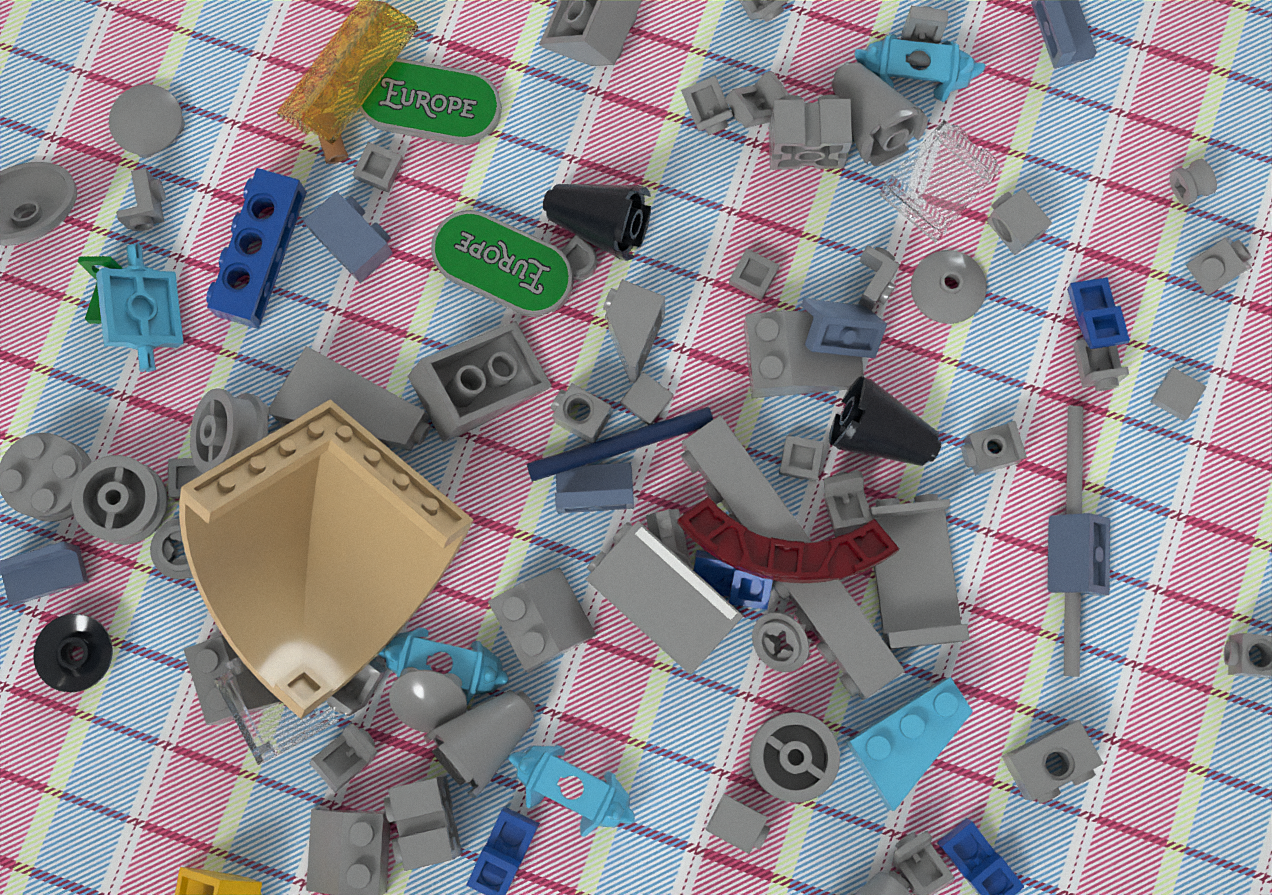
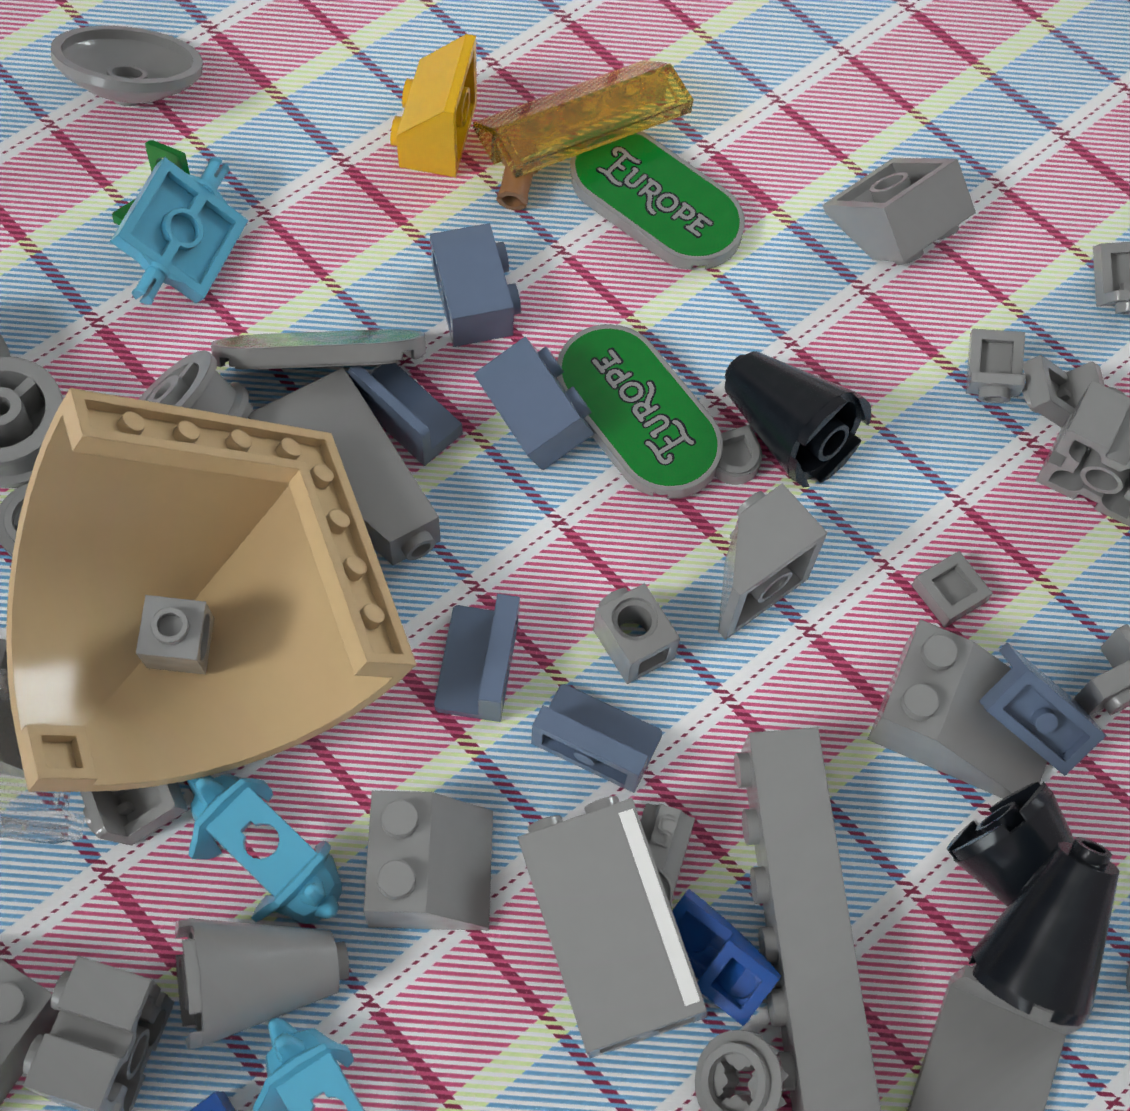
camera: 20 degrees right, 15 degrees down
(145, 120) = (323, 58): light grey dish -> none
(149, 195) = (267, 135): light grey bracket -> none
(250, 122) = (438, 109): none -> yellow slope
(250, 303) = (387, 218): blue brick -> none
(281, 340) = (318, 348): none -> light grey tile
(318, 577) = (175, 634): none -> light grey brick
(344, 757) = (58, 893): light grey bracket -> none
(358, 346) = (407, 411): none -> sand blue panel
(378, 167) = (554, 234): light grey tile -> none
(427, 698) = (213, 874): light grey dish -> none
(437, 299) = (534, 403): none -> sand blue brick
(478, 380) = (526, 522): light grey slope -> none
(498, 482) = (478, 660): none -> sand blue panel
(619, 444) = (657, 696): dark blue piece -> none
(646, 399) = (729, 664): light grey tile -> none
(786, 559) = (808, 966): dark red tile -> none
(801, 458) = (896, 851): light grey tile -> none
(846, 502) = (932, 944): light grey bracket -> none
(910, 469) = (1053, 935): none -> black cone

